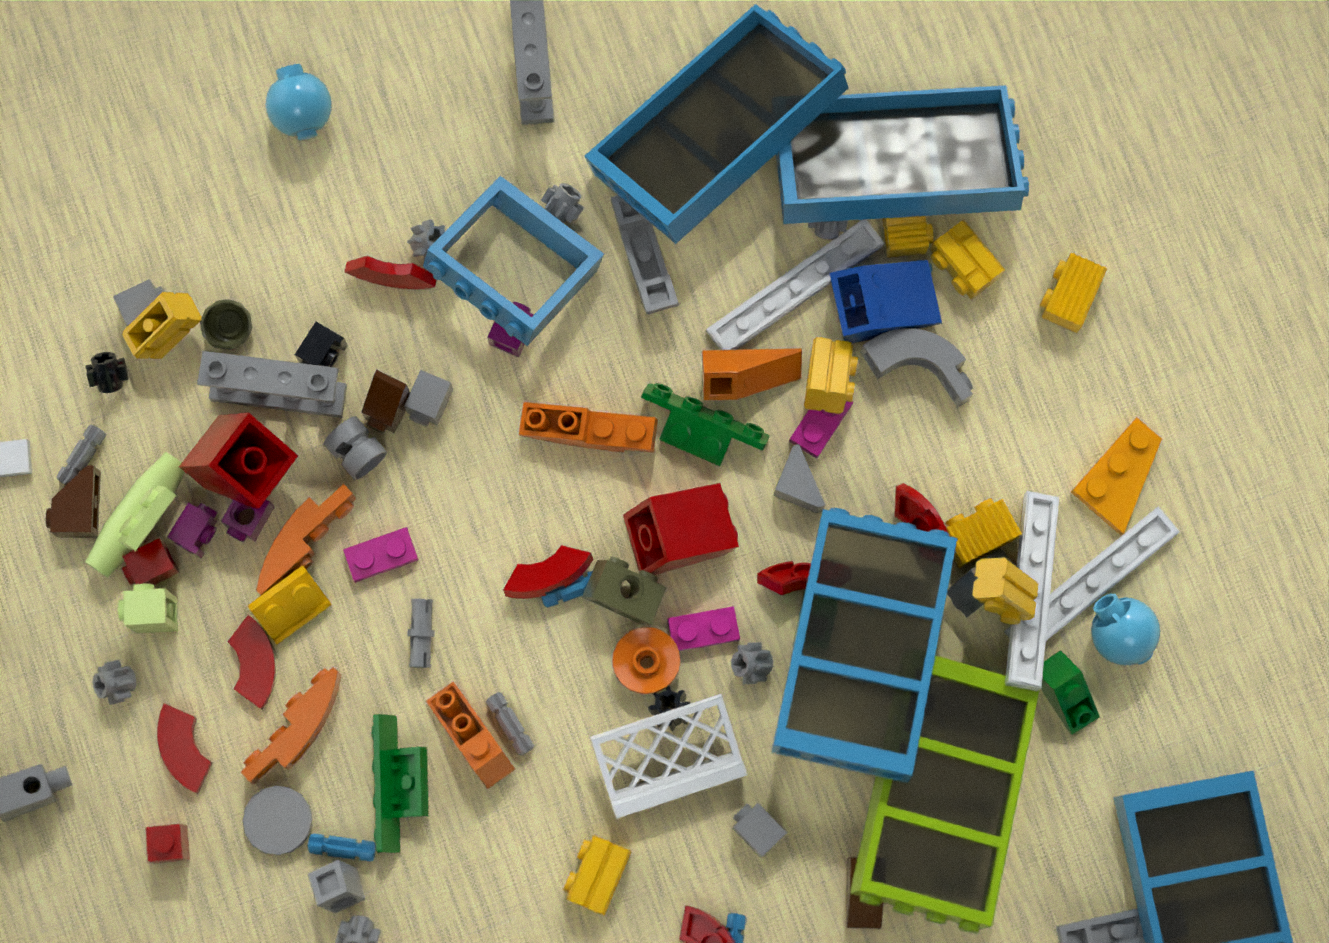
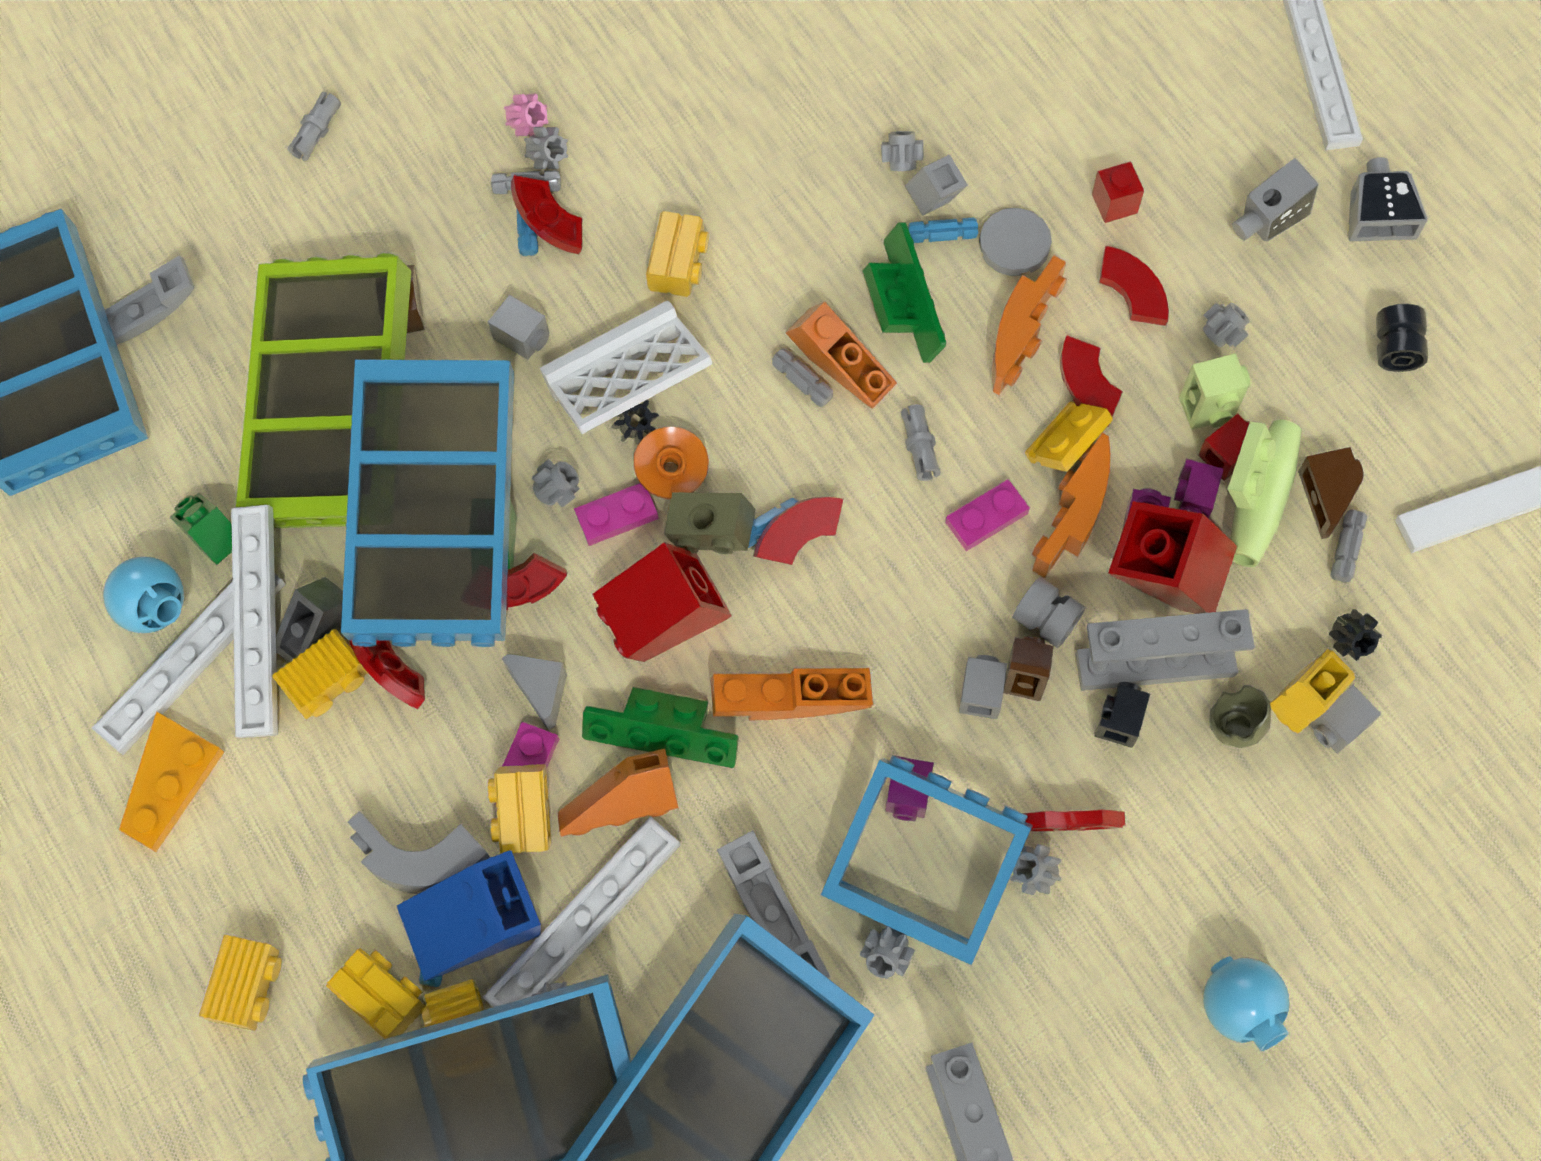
camera: 175 degrees right, 10 degrees down
(1005, 590) = (279, 589): yellow brick -> none

